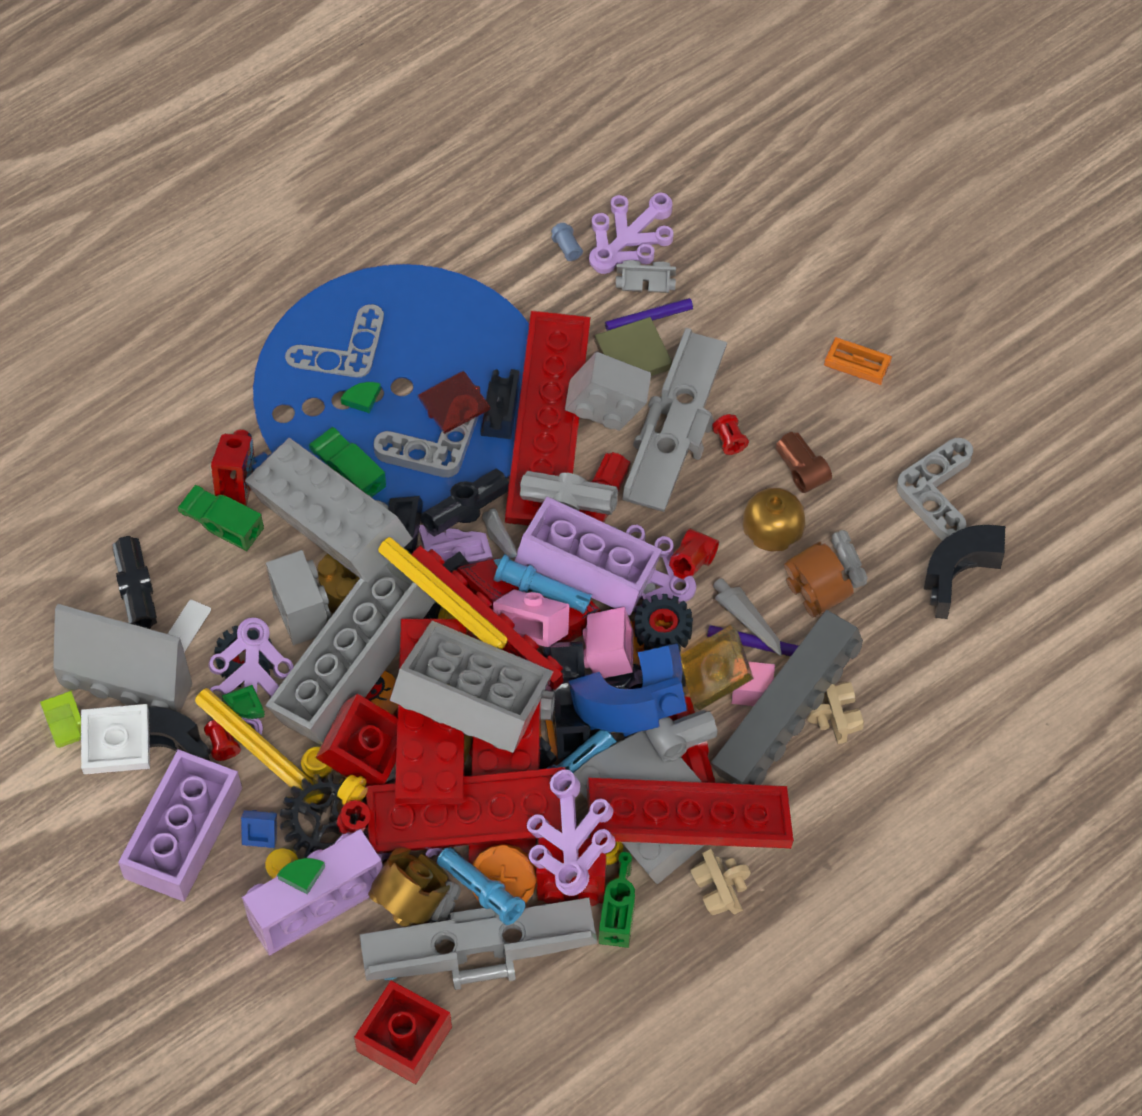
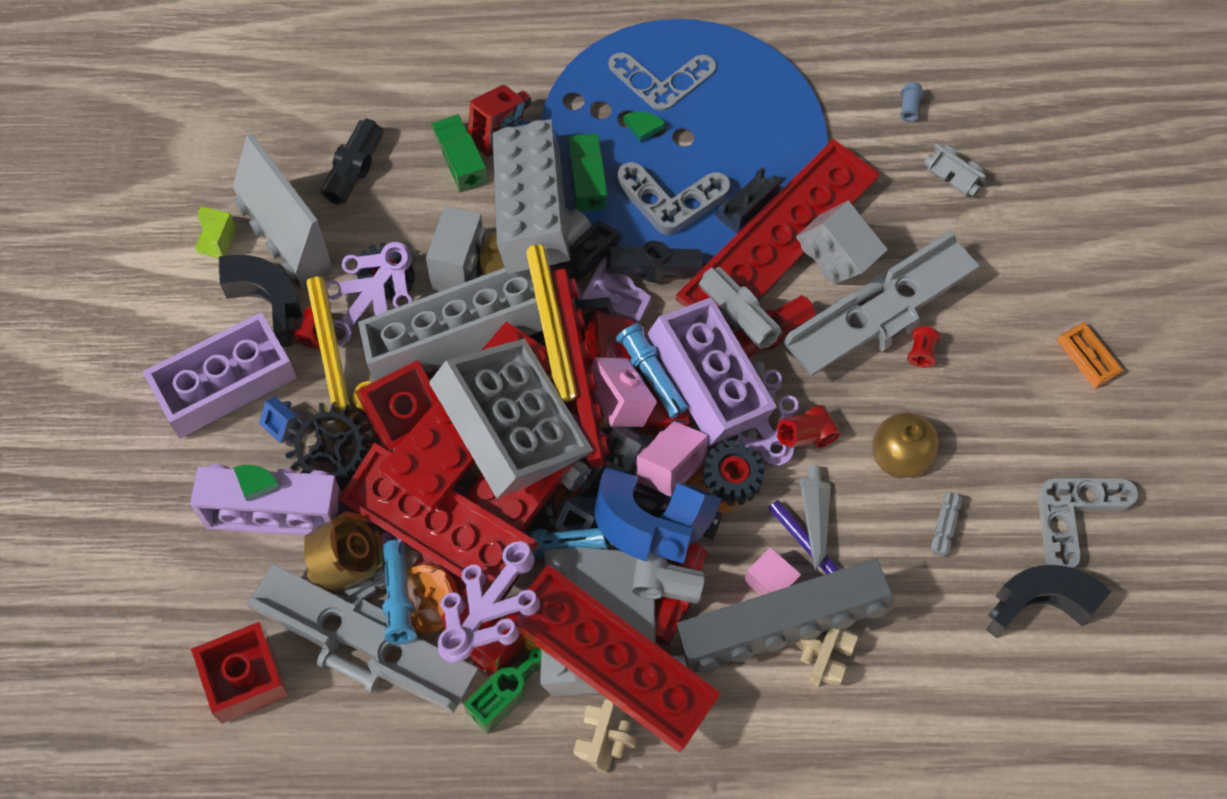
camera: 35 degrees right, 5 degrees up
(115, 739) = (226, 272): white tile -> none
(189, 622) = (366, 221): white sticker -> none
(245, 703) = (346, 309): green tile -> none
(277, 860) = (273, 458): yellow plate -> none
(352, 789) = (358, 438): yellow plate -> none
(352, 808) = (330, 462): red bush -> none
(454, 402) = (710, 174): clear red piece -> none
(498, 533) = (662, 296): light grey bar -> none
(630, 234) = (971, 128): lavender plant -> none
(636, 345) = (899, 223): olive tile -> none
(654, 313) = (934, 204): dark purple piece -> none
(715, 667) = (748, 541): clear yellow tile -> none
(806, 468) = (969, 419): copper piece -> none
(818, 578) = (899, 523): dark orange brick -> none

